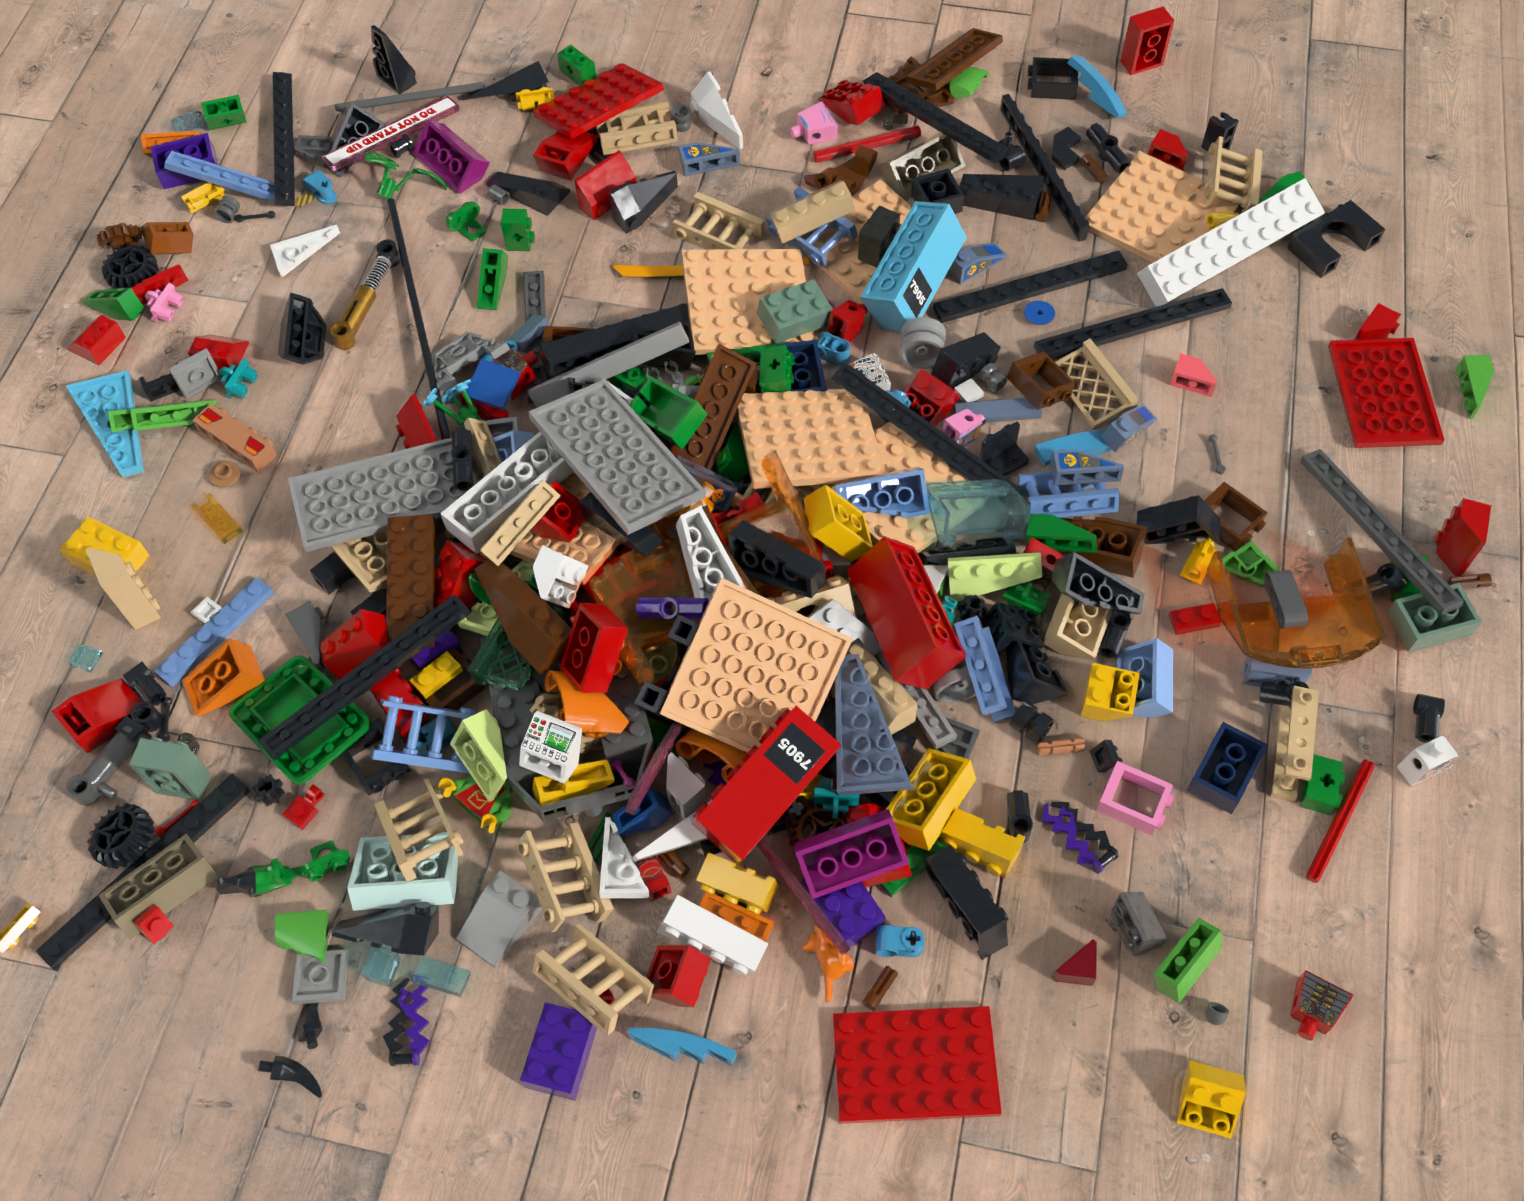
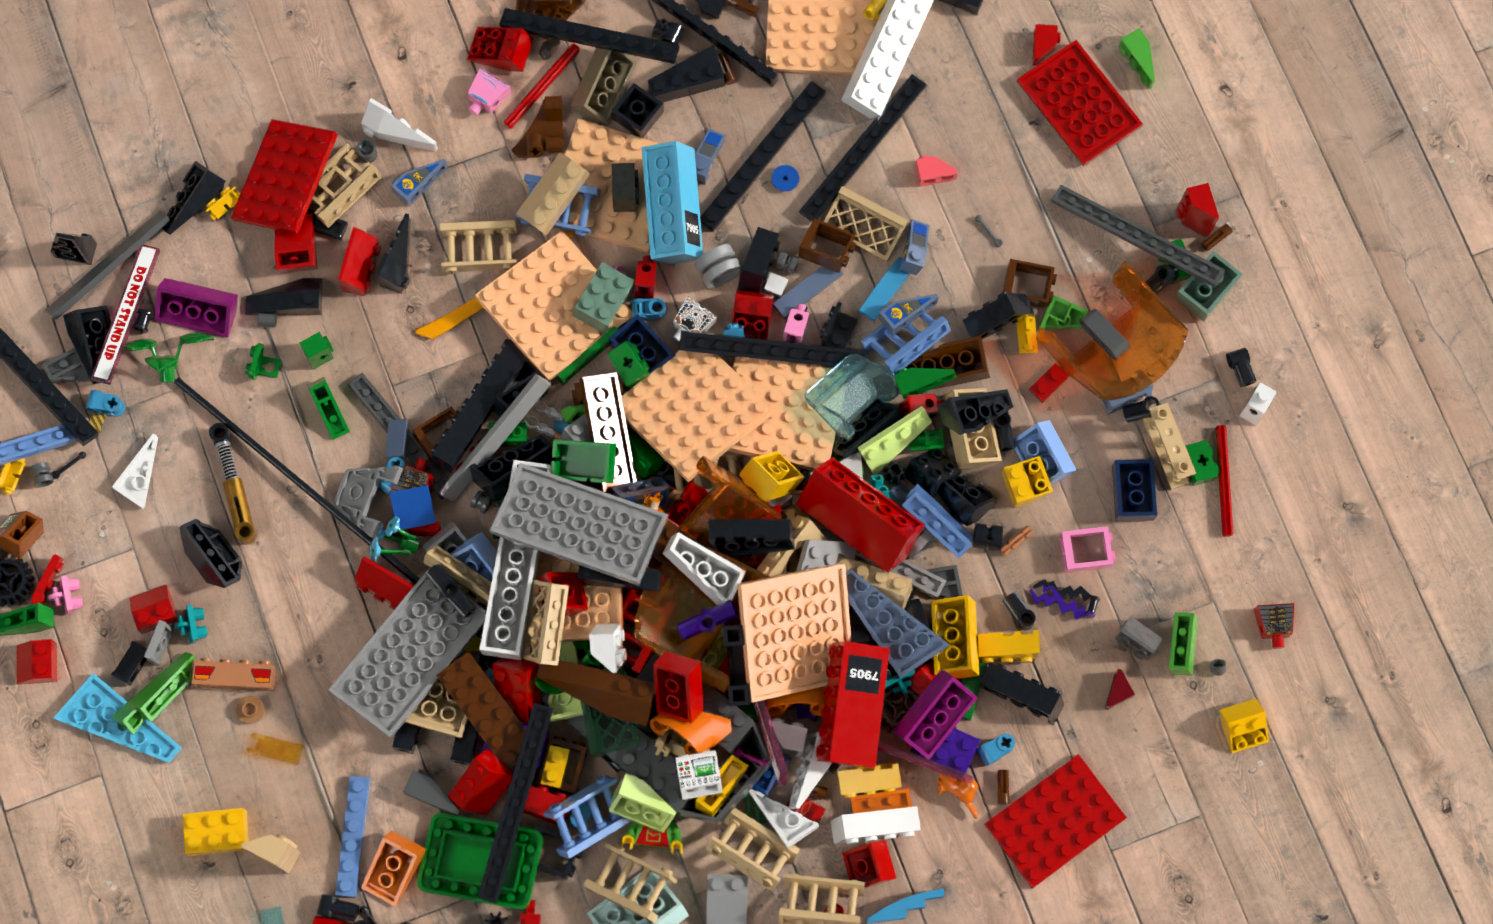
camera: 40 degrees left, 15 degrees up
(205, 610) = (333, 825): white tile -> none
(576, 65) = (235, 147): green brick -> none
(892, 493) = (790, 418): medium blue wedge -> none
(1105, 756) = (1050, 530): black tile -> none

